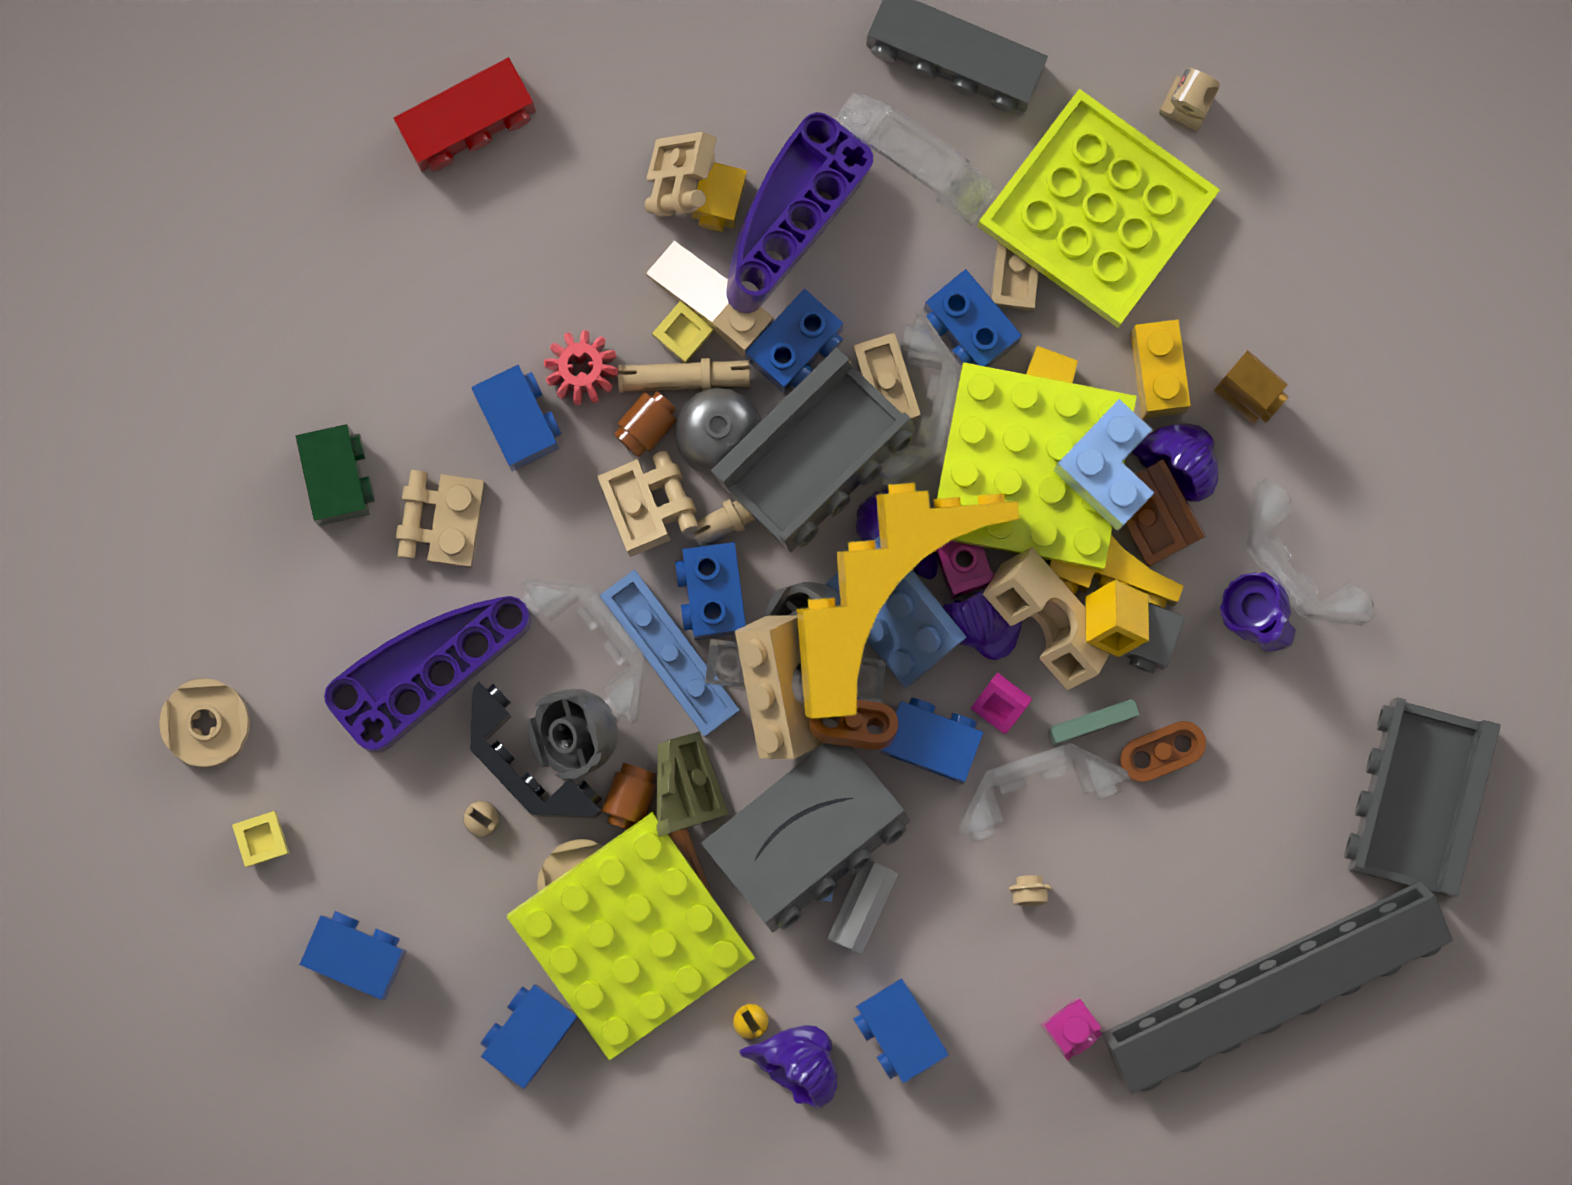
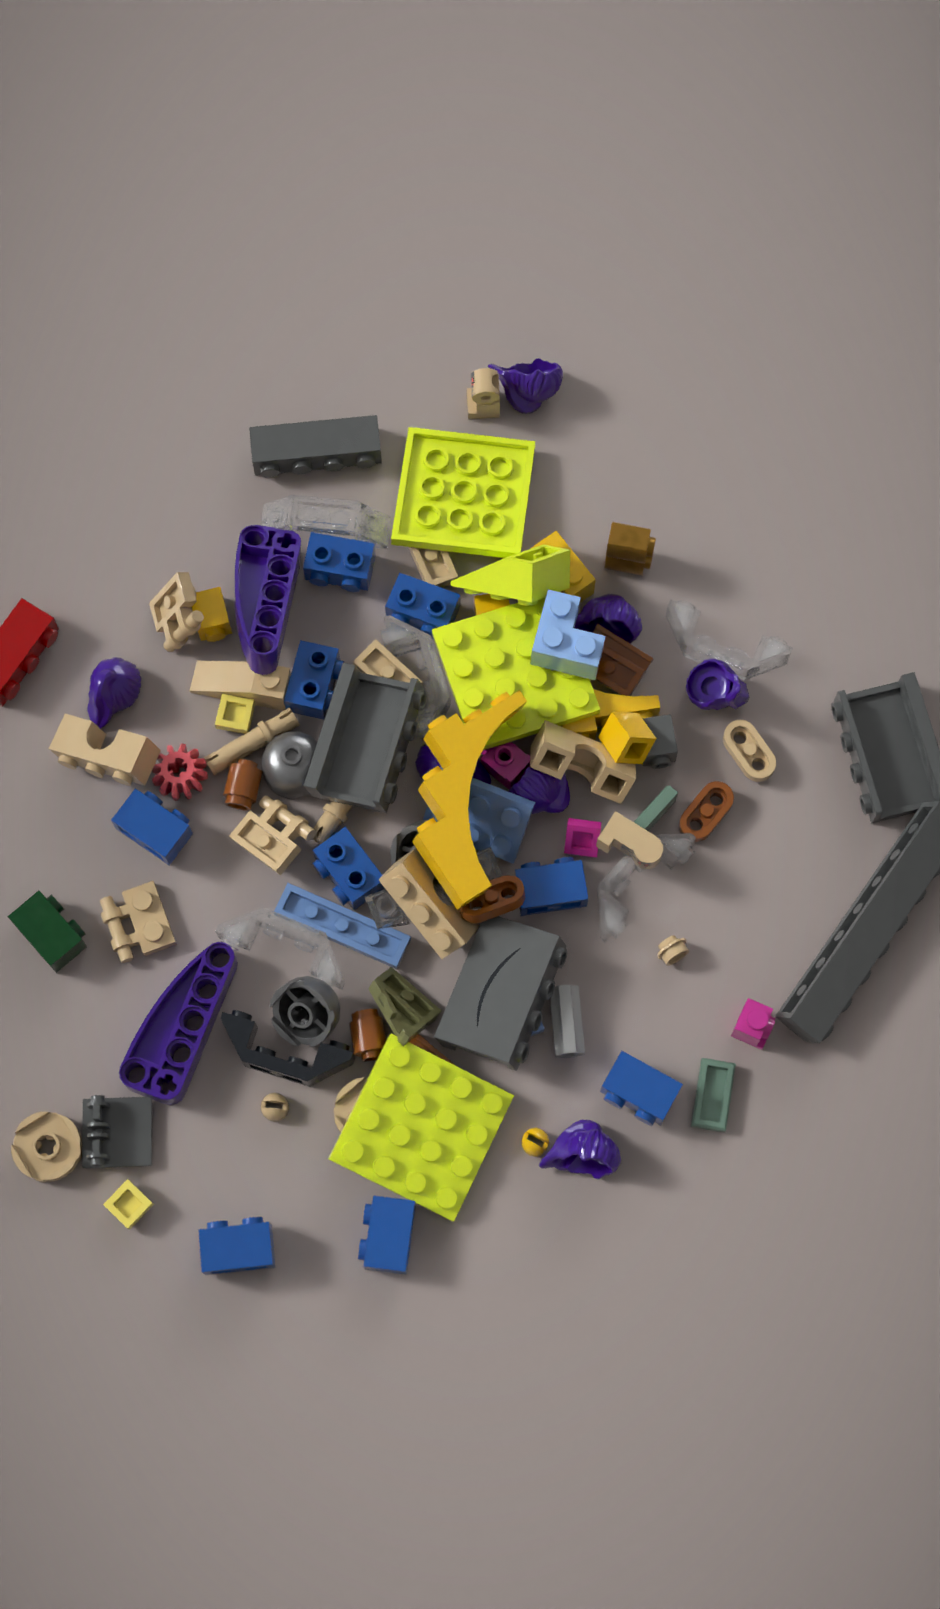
camera: 25 degrees left, 10 degrees down
(291, 749) = (116, 1132): none -> dark grey hinge
(528, 322) = (125, 759): none -> tan arch
(557, 224) = (112, 688): none -> dark purple hair
(903, 213) = (339, 562): none -> blue brick
(981, 1081) = (713, 1095): none -> sand green tile
(1059, 757) = (632, 840): none -> tan leg
(1101, 356) = (521, 576): none -> neon yellow slope
(1254, 707) = (751, 751): none -> tan plate
(1255, 111) = (529, 384): none -> dark purple hair

